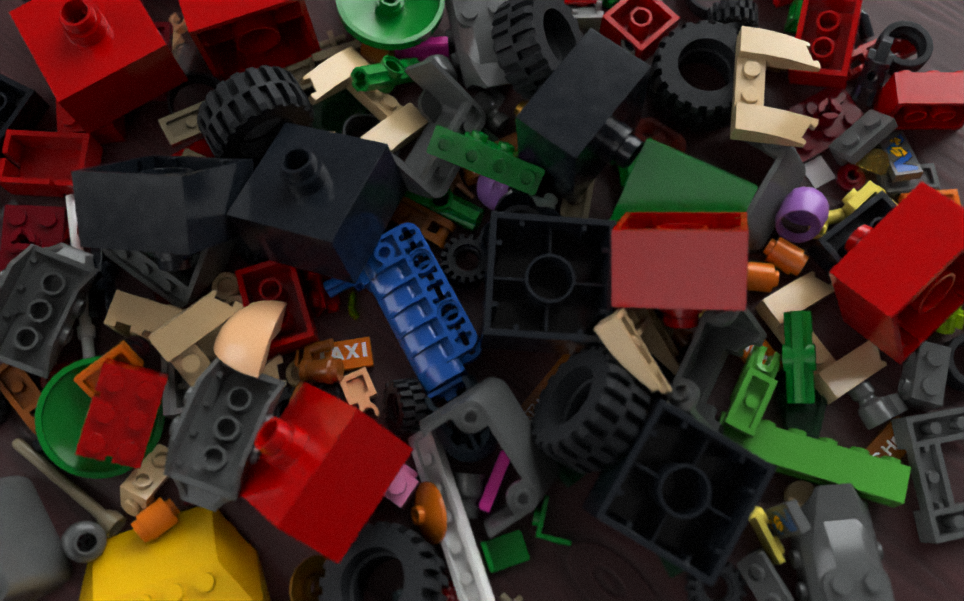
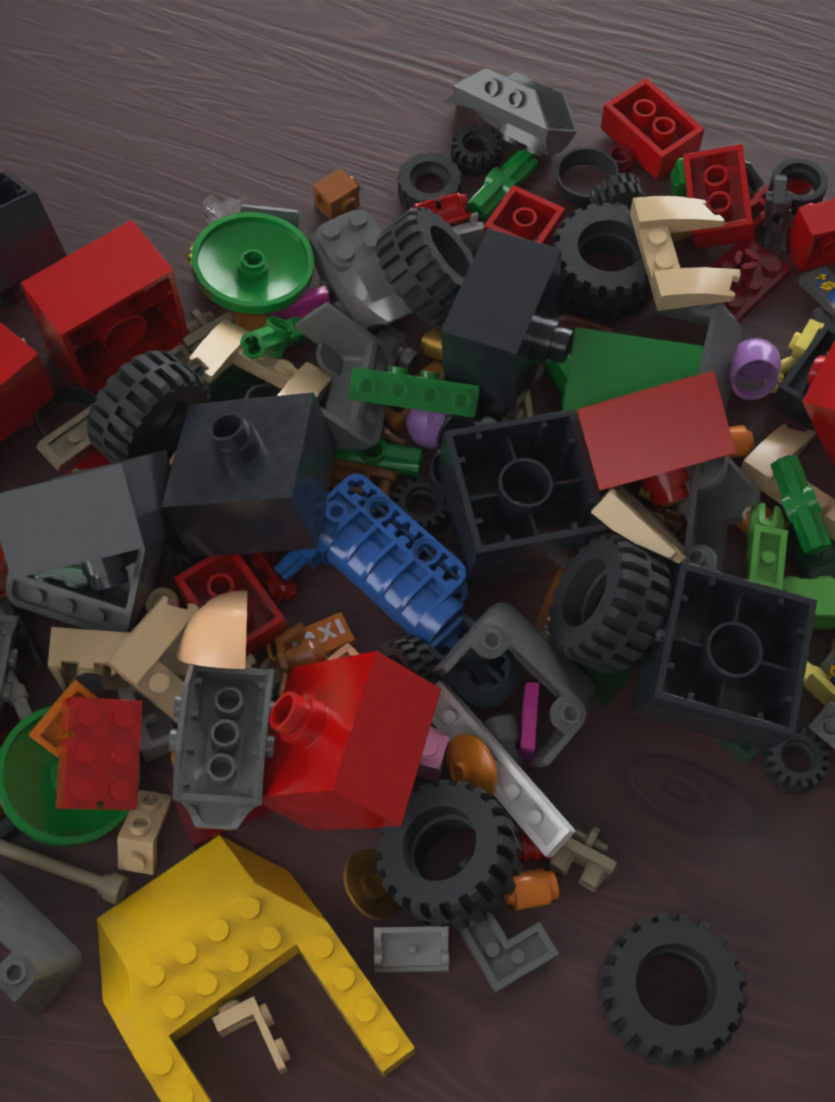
camera: 20 degrees left, 10 degrees down
(87, 552) = (91, 912): dark grey head -> none
(156, 519) = (167, 865): orange brick -> none
(352, 306) = (315, 595): clear neon green leg -> none
(505, 551) = (564, 787): green bracket -> none
(538, 520) = (600, 760): green bracket -> none
(785, 256) = (752, 414): orange brick -> none
(818, 172) = (755, 327): white sticker -> none
(845, 182) = (785, 330): dark red plate -> none
(862, 137) = (787, 280): dark grey bracket -> none
(875, 161) = (803, 300): clear yellow brick -> none

